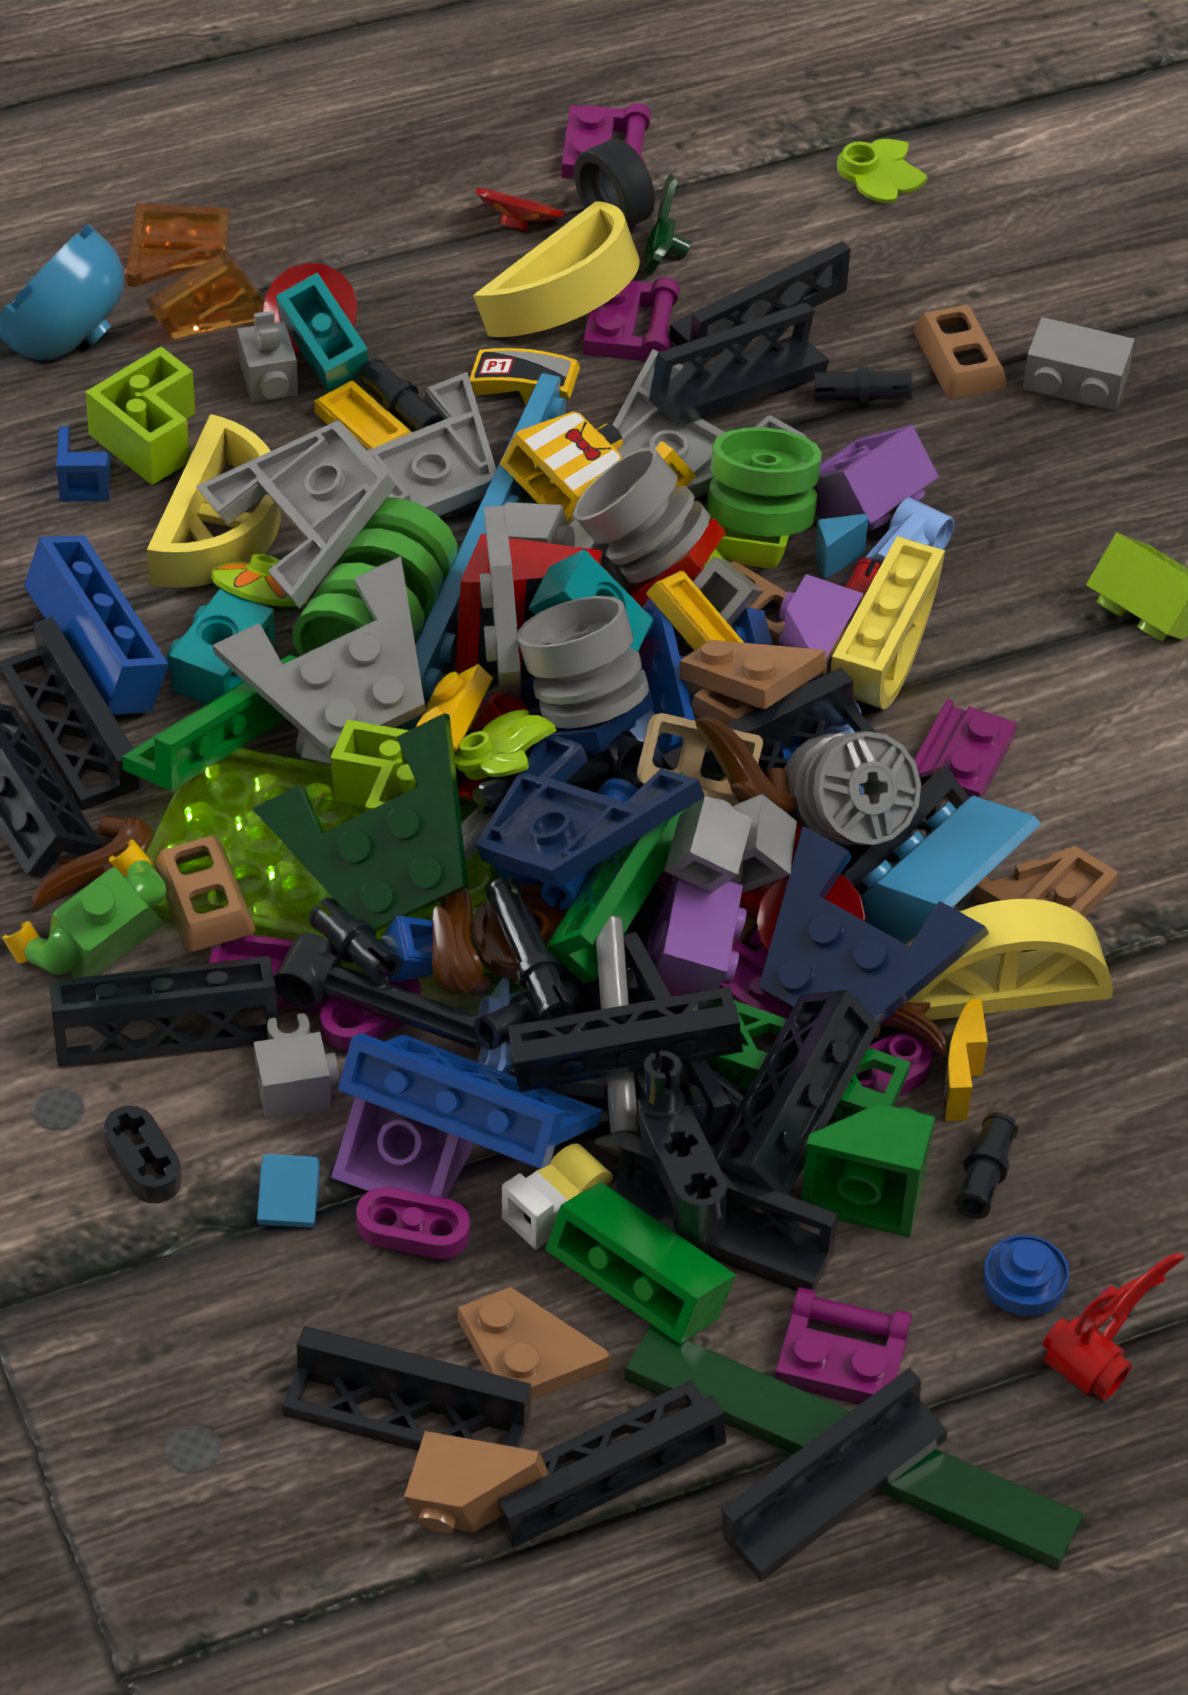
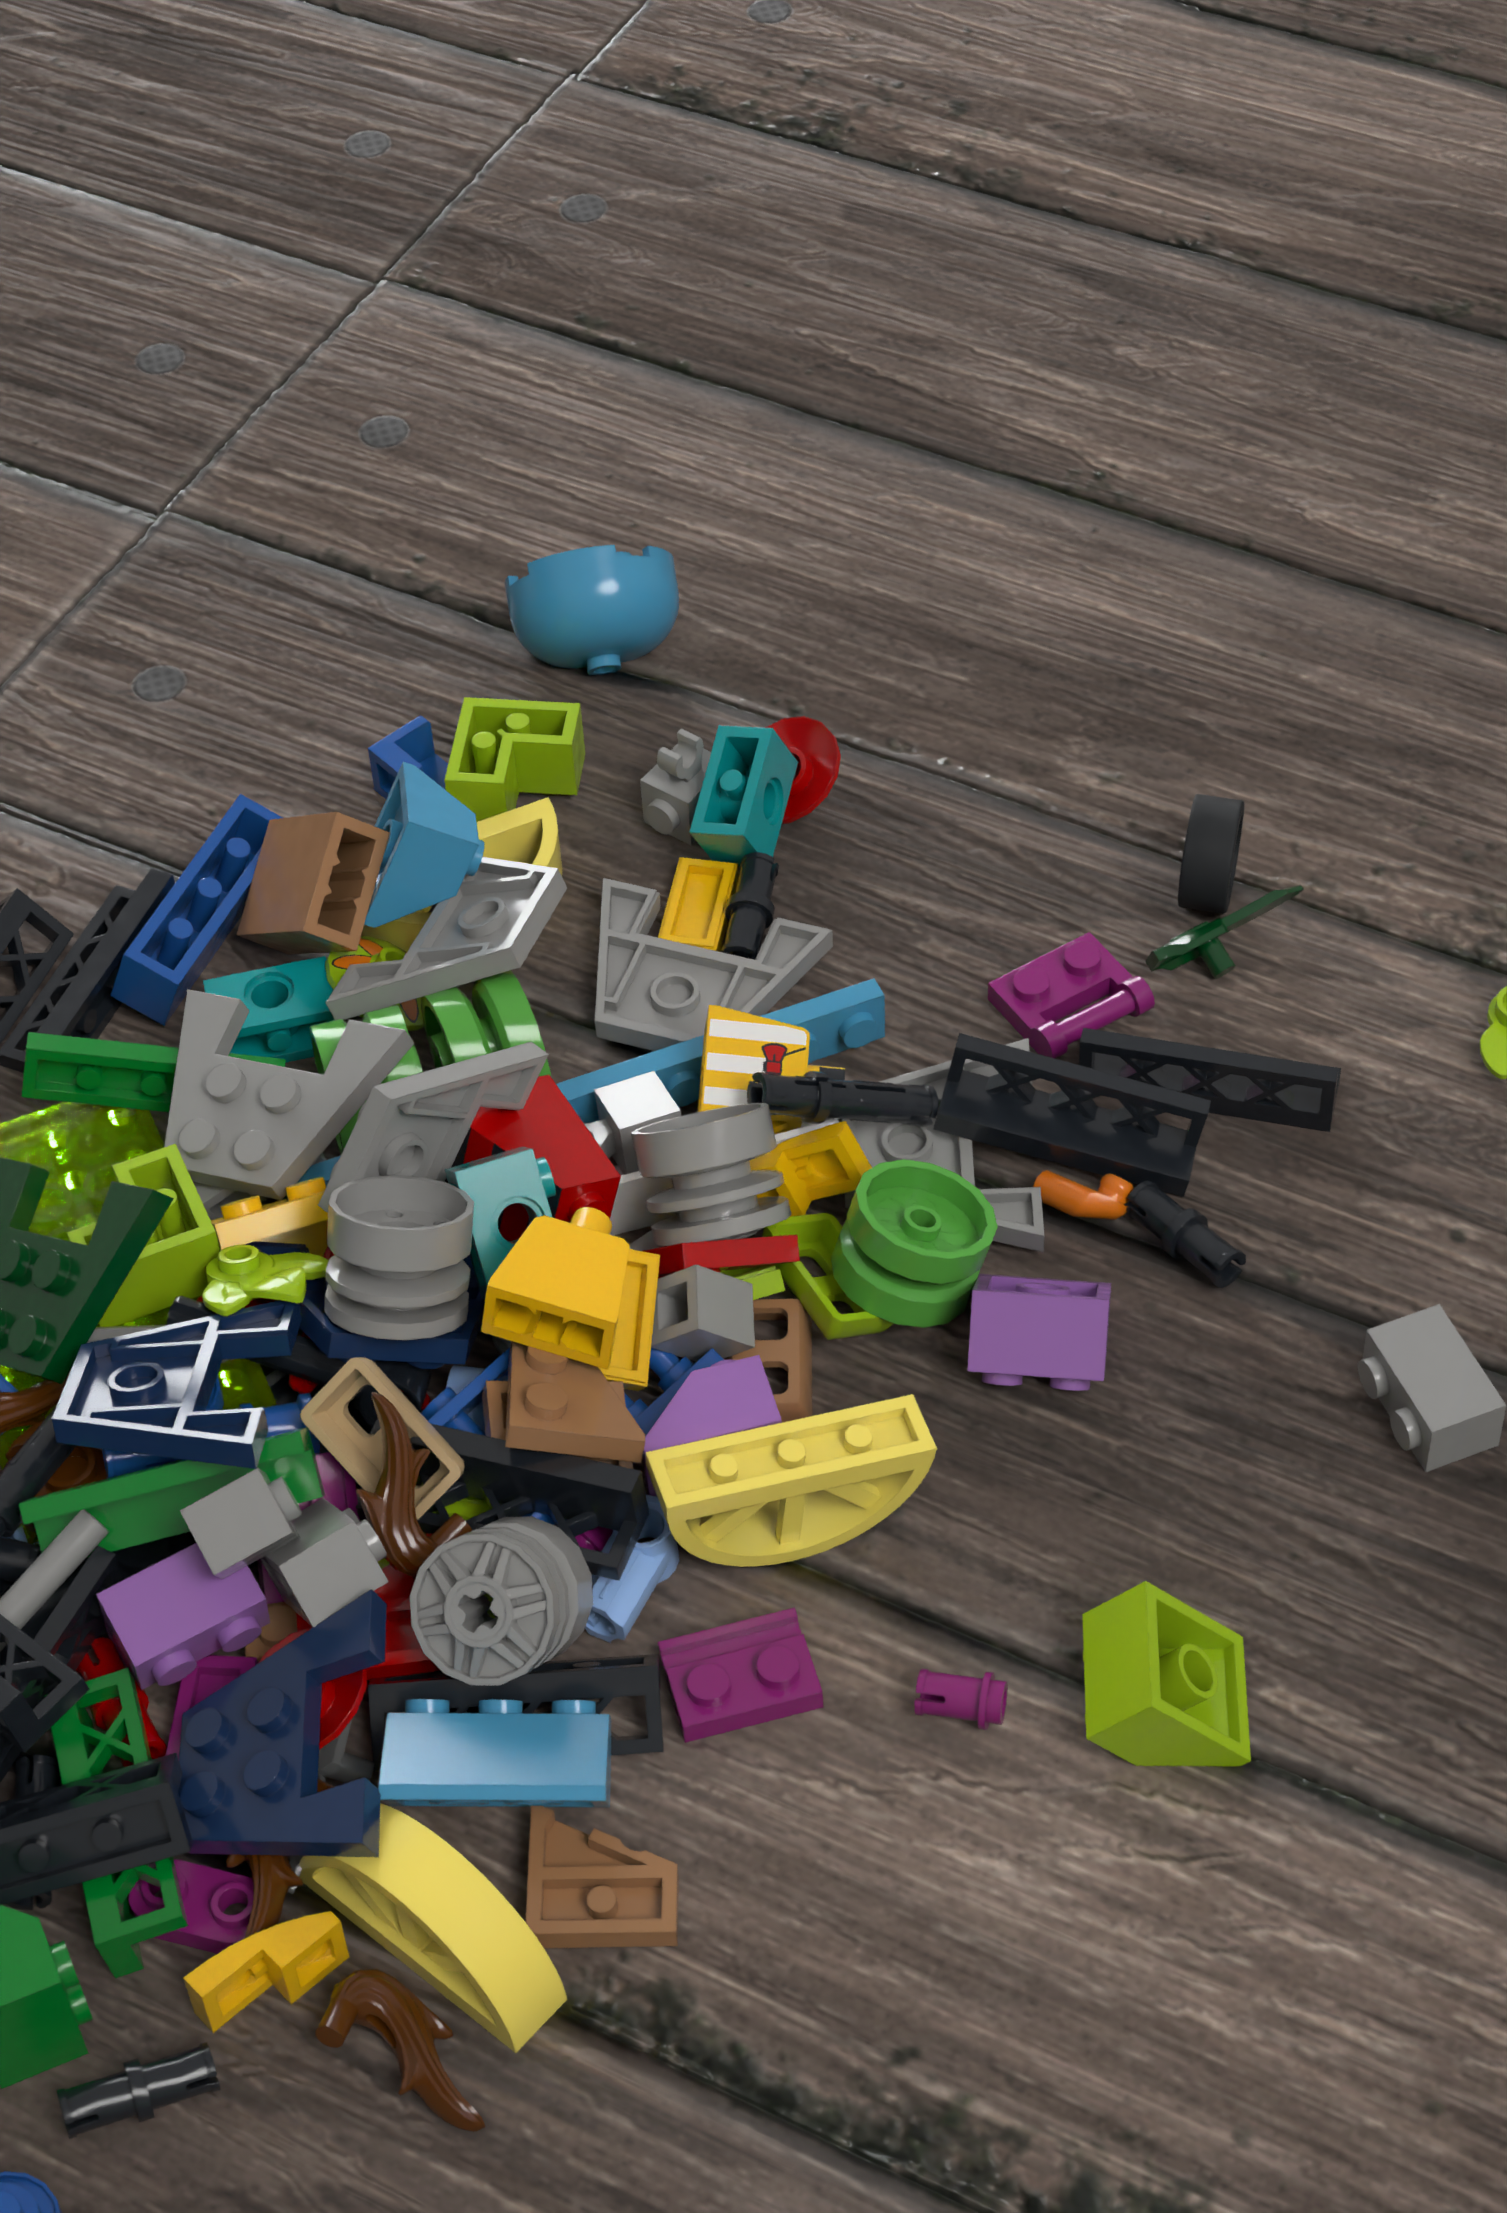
camera: 55 degrees right, 0 degrees up
(173, 547) = (313, 883): none -> medium nougat brick
(174, 239) = (778, 628): clear orange wing -> none
(207, 299) = (708, 692): clear orange wing -> none
(219, 479) = (427, 849): none -> dark azure slope
(518, 211) = (1114, 810): red dish -> none
(519, 370) = (896, 966): slope -> none
(562, 276) = (1052, 904): light yellow window -> none
(594, 125) = (1292, 801): magenta plate -> none
(640, 432) = (822, 1098): none -> black pin
(694, 606) = (561, 1288): none -> yellow torso
(789, 410) = (1083, 1201): none -> orange arm
(840, 542) = (920, 1366): dark azure slope -> none
(916, 523) = (1008, 1420): light blue piece -> none
(939, 347) = (1373, 1283): medium nougat piece -> none
(1038, 1027) = (409, 2028): none -> reddish brown piece
(1086, 666) = (962, 1697): none -> magenta pin

